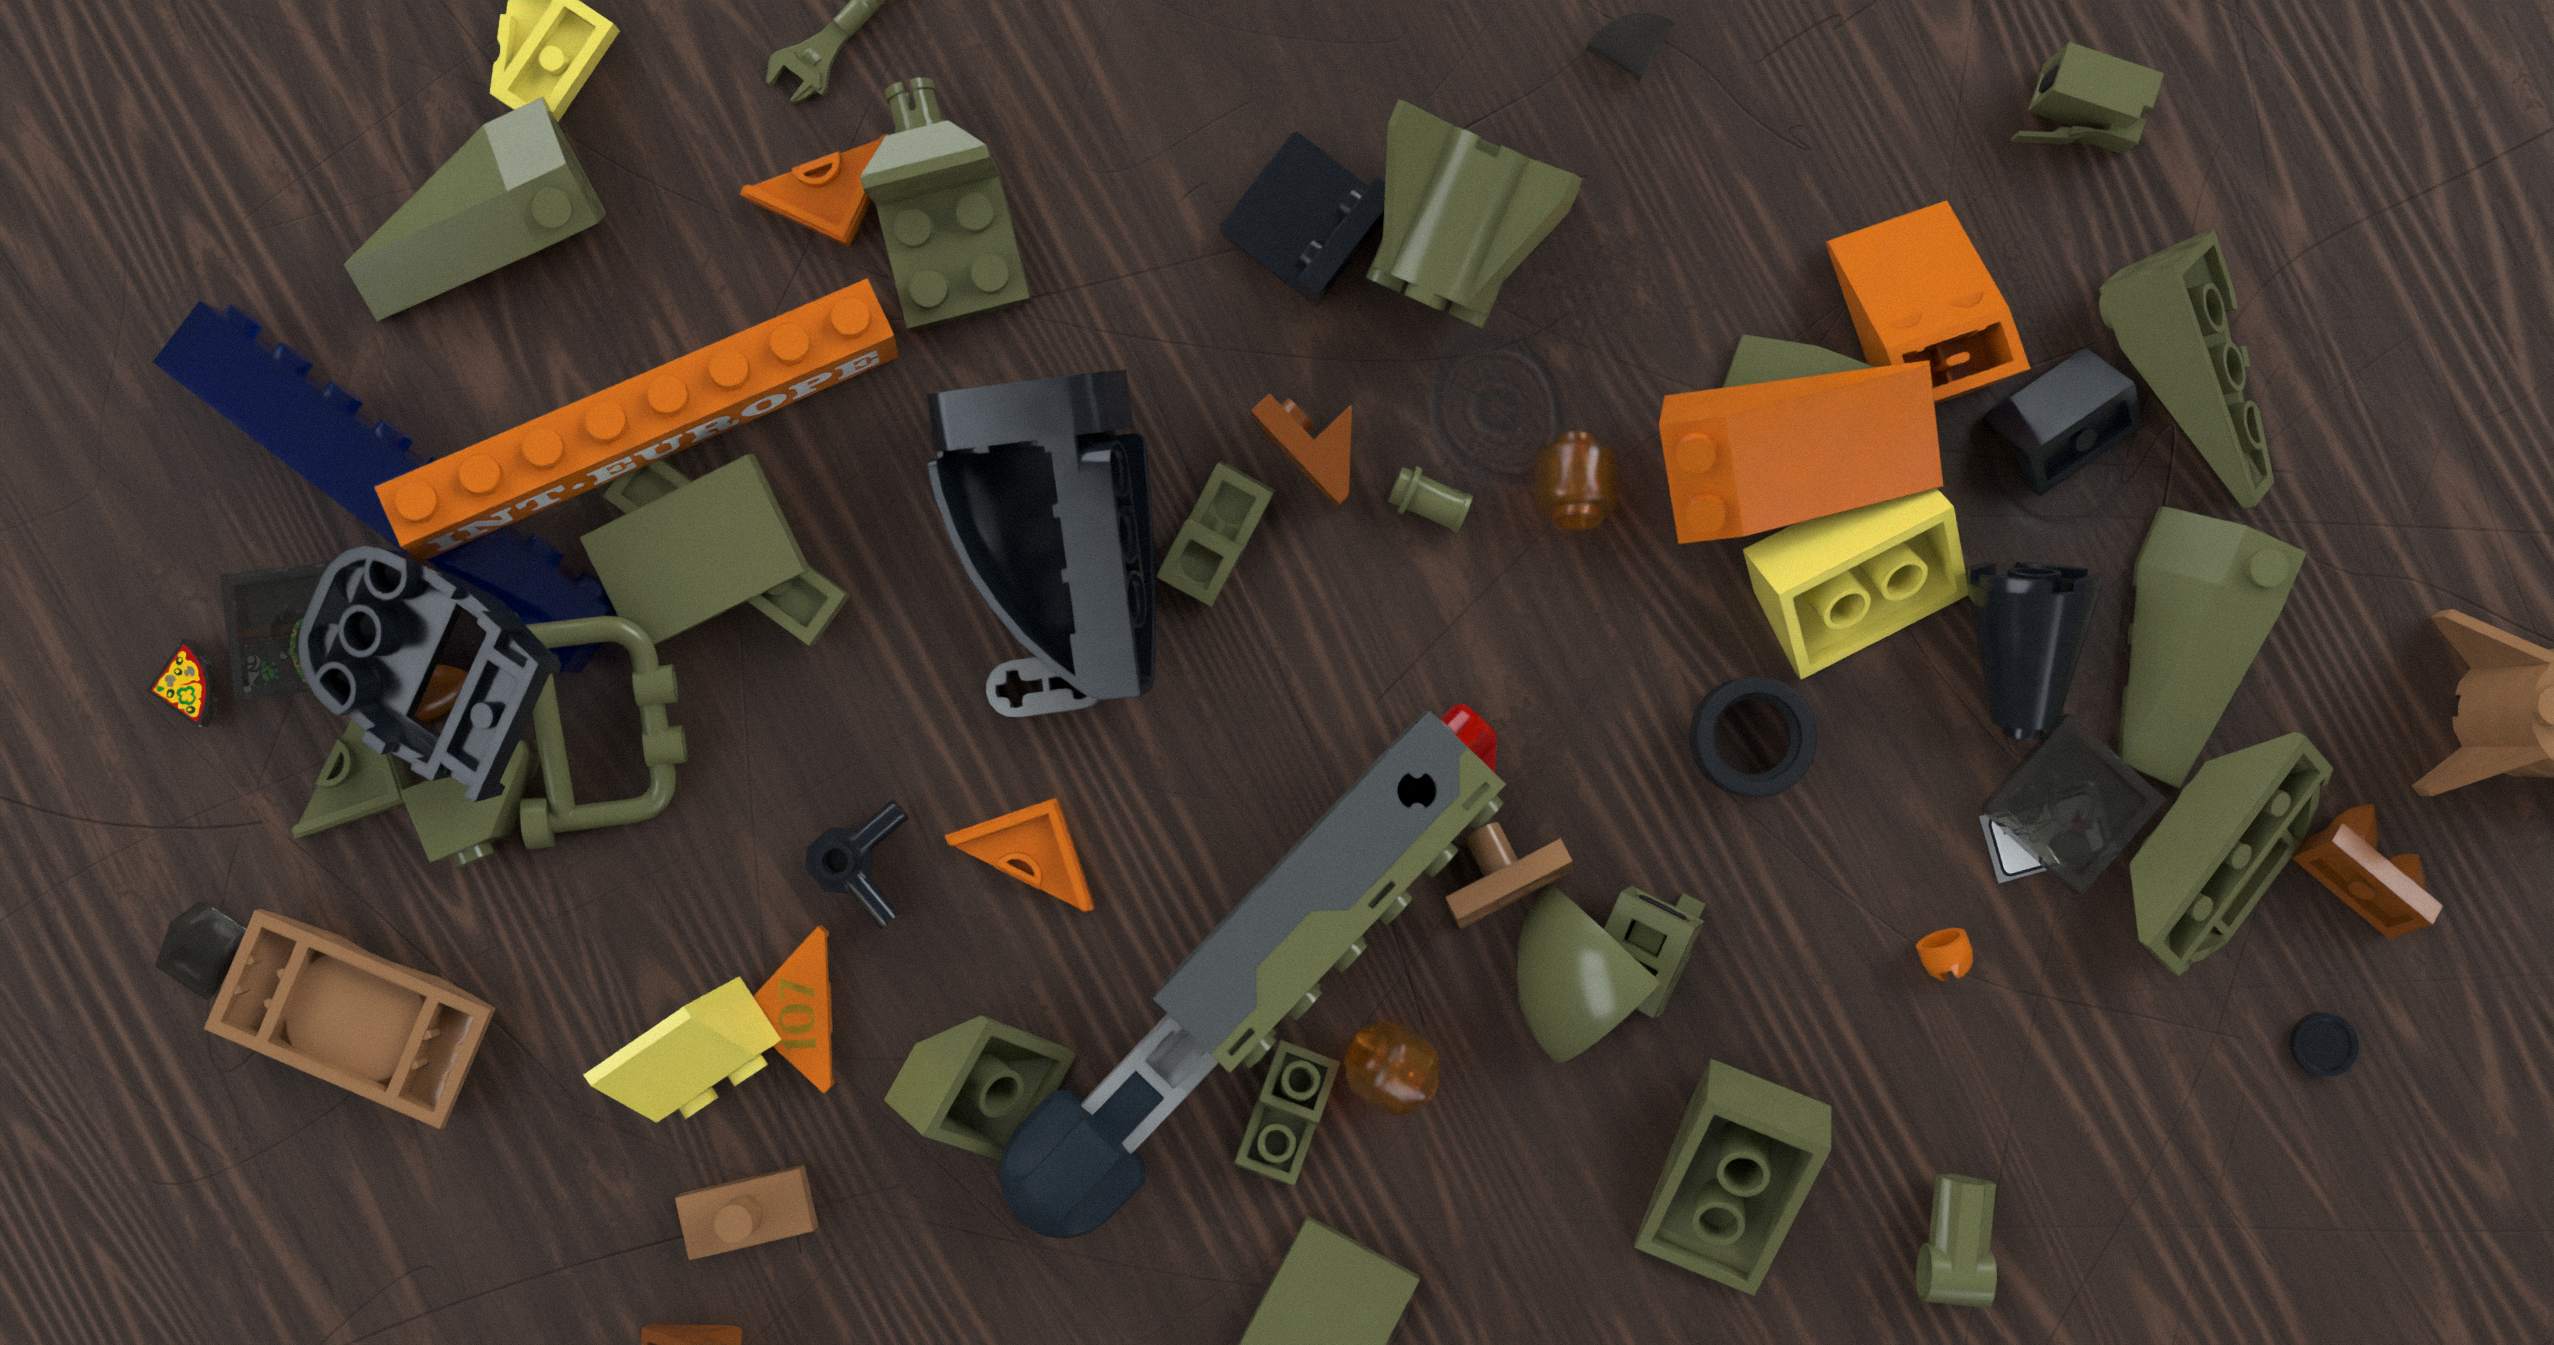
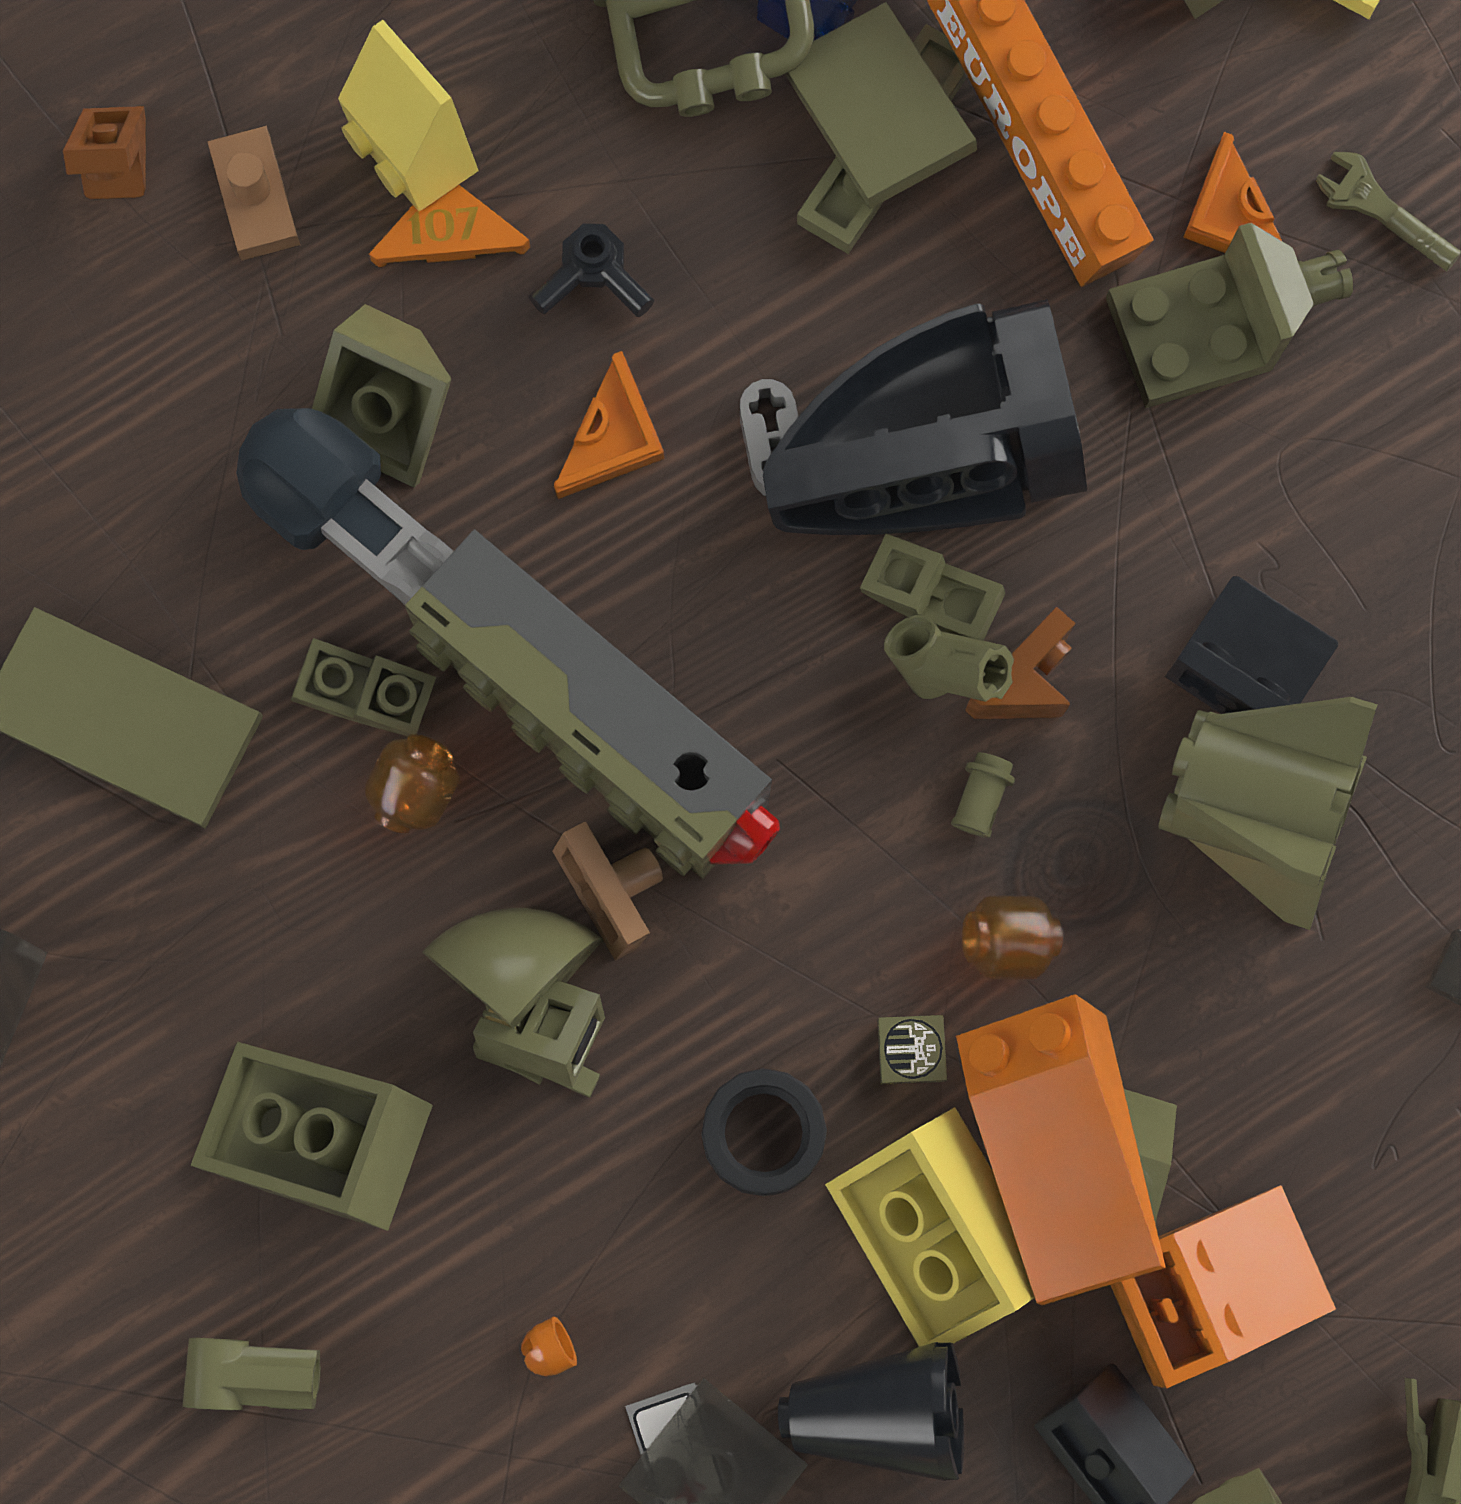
camera: 80 degrees right, 10 degrees down
(1302, 524) = (947, 662): none -> olive piece
(1677, 587) = (912, 1049): none -> olive tile

